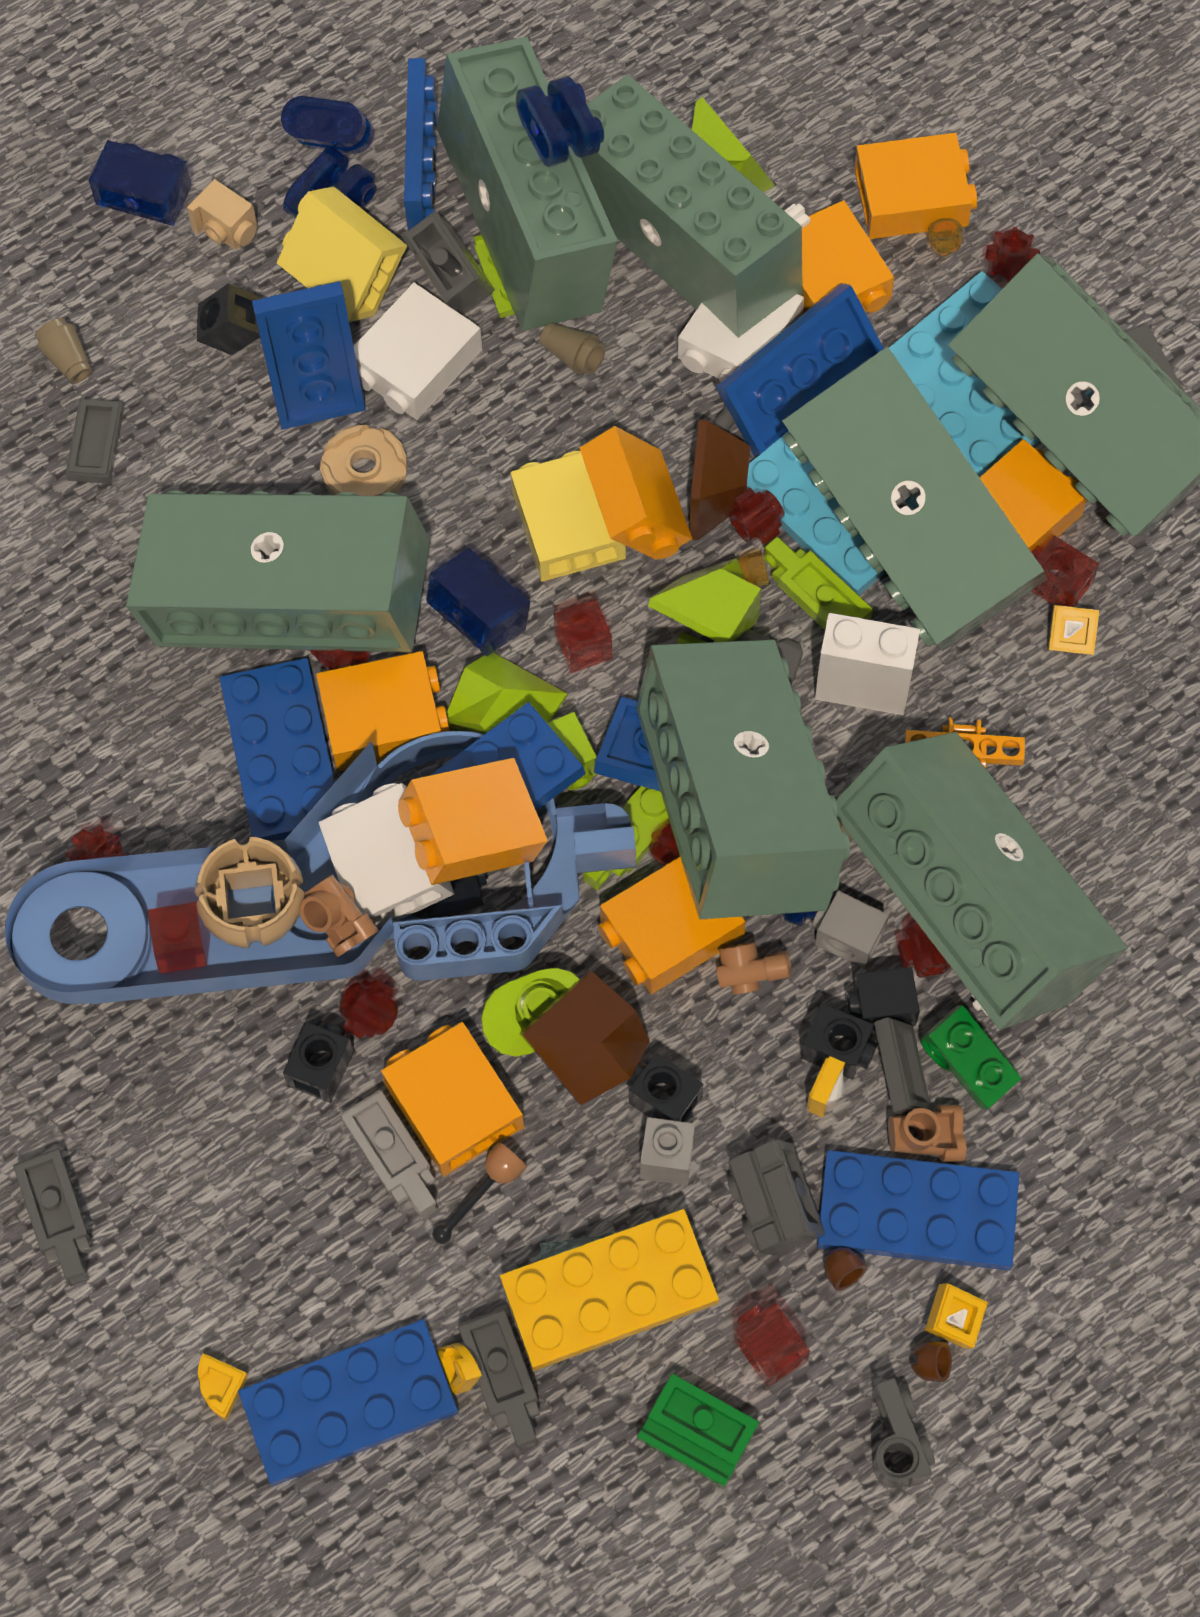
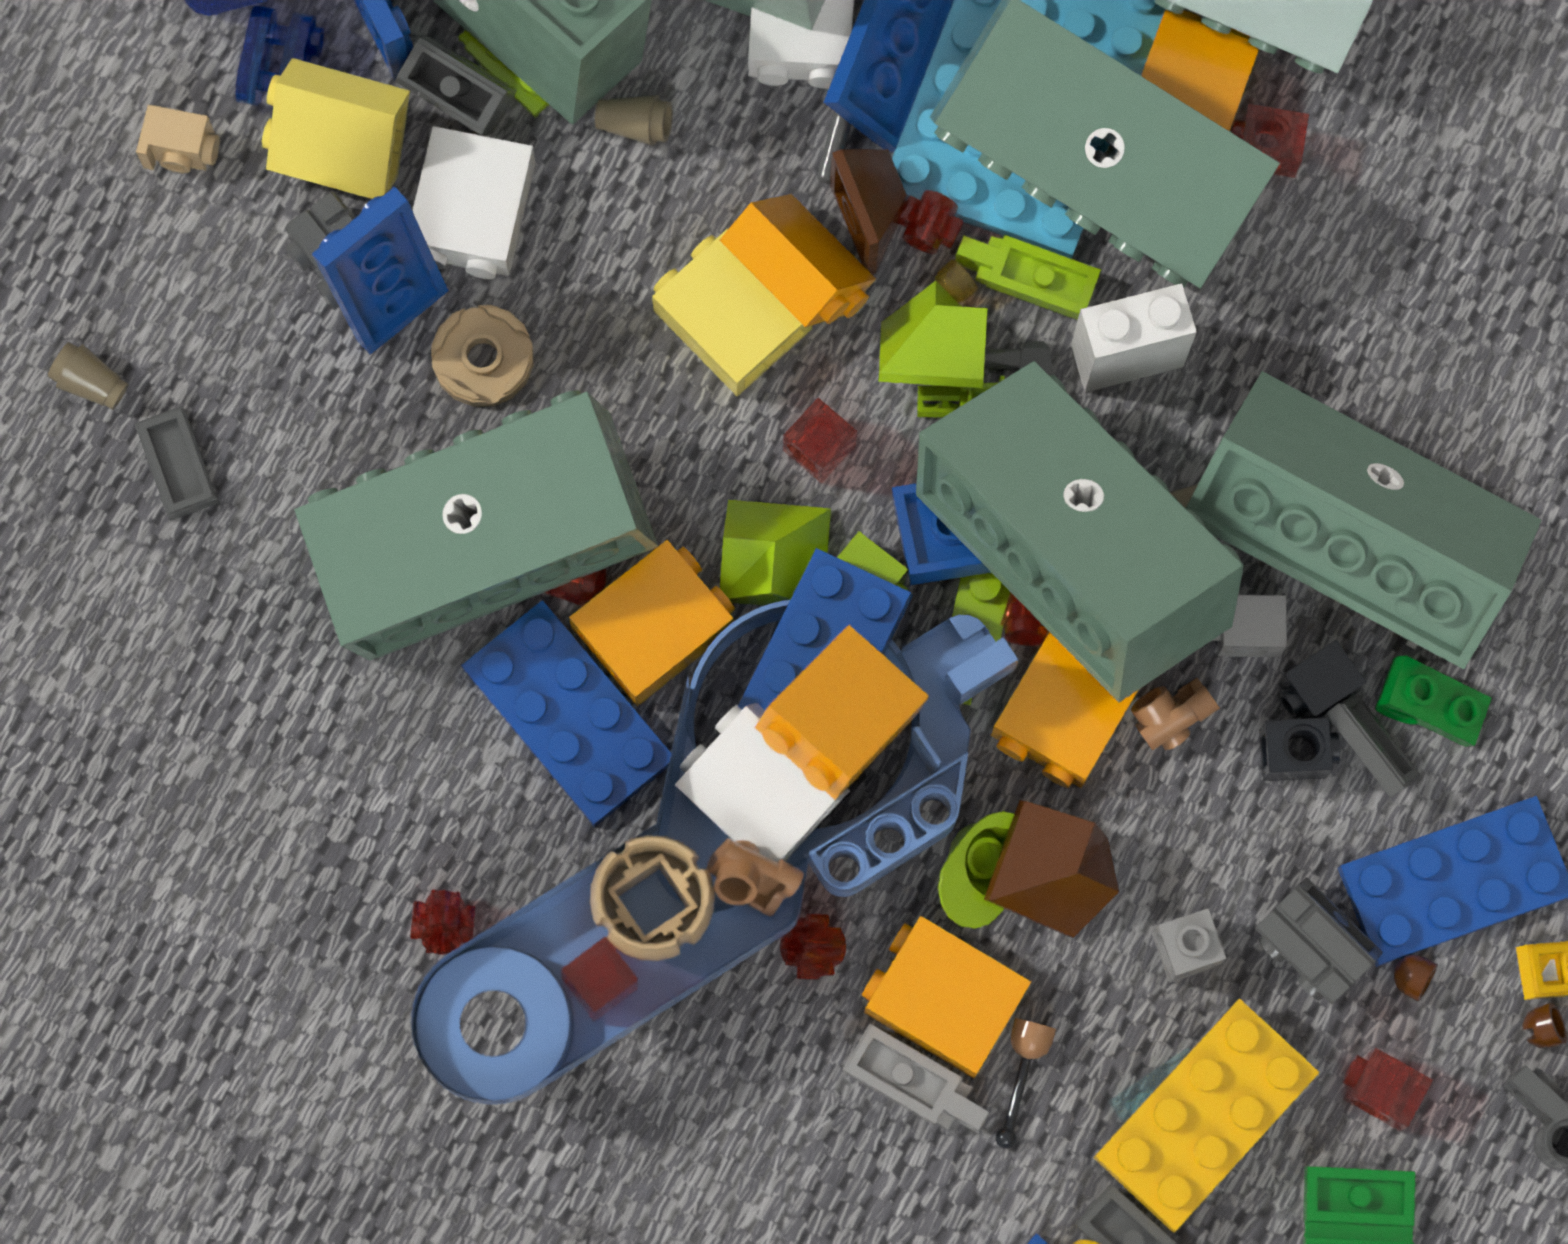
camera: 30 degrees left, 10 degrees up
(140, 182) = (63, 142): clear blue brick -> none
(227, 319) = (253, 259): black brick -> none
(323, 1080) = (792, 1047): black brick -> none
(478, 601) = (692, 454): clear blue brick -> none
(660, 1070) = (1174, 875): black brick -> none
(827, 1087) = (1309, 801): yellow tile -> none
(921, 953) = (1332, 617): clear red gear -> none
(938, 1133) = (1437, 794): medium nougat plate -> none
(980, 742) = (1276, 363): light orange piece -> none
(1073, 630) = (1311, 194): yellow tile -> none

